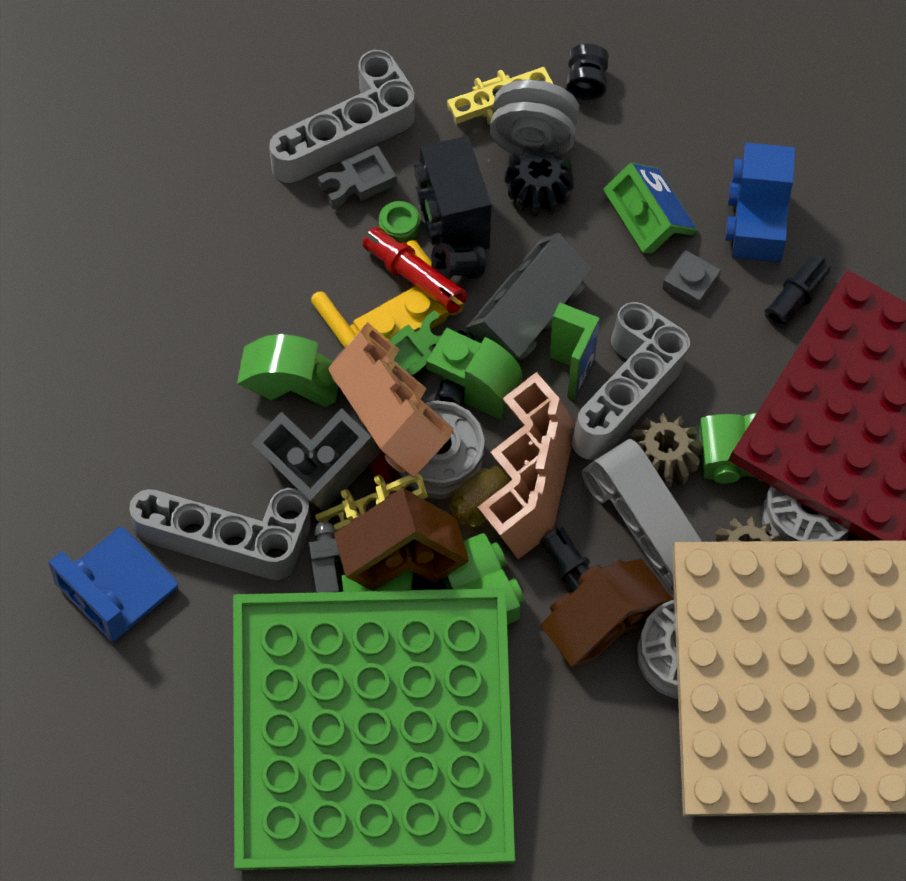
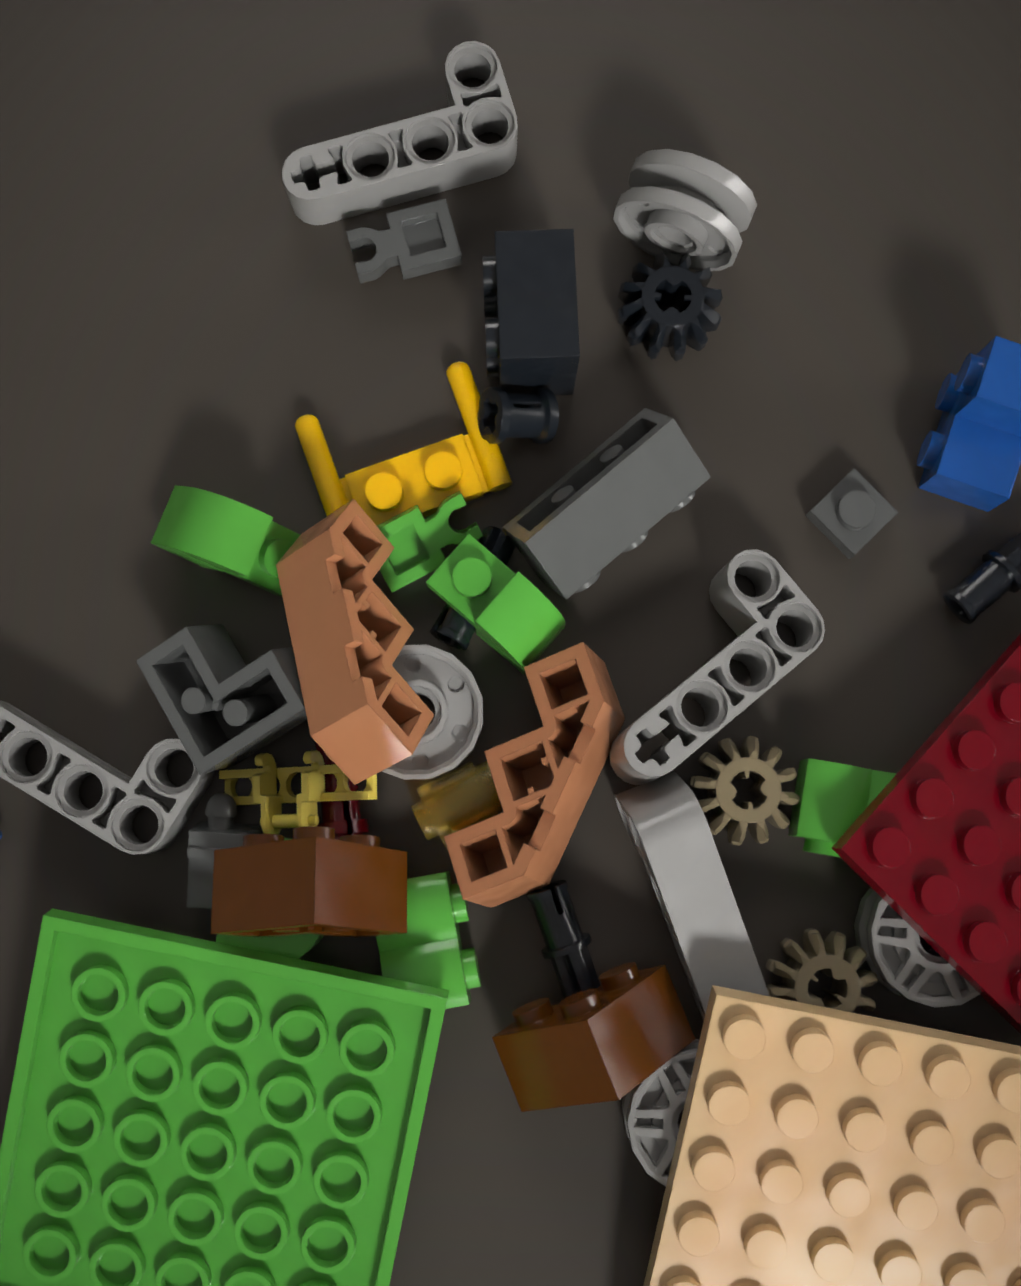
camera: 10 degrees right, 20 degrees up
(400, 221) = (451, 326): bright green tile -> none
(401, 260) = (438, 397): red pin -> none
(483, 91) = (628, 138): light yellow piece -> none
(574, 343) = (658, 593): bright green panel -> none
(587, 71) = (787, 133): black wheel -> none
(648, 206) = (819, 384): bright green panel -> none

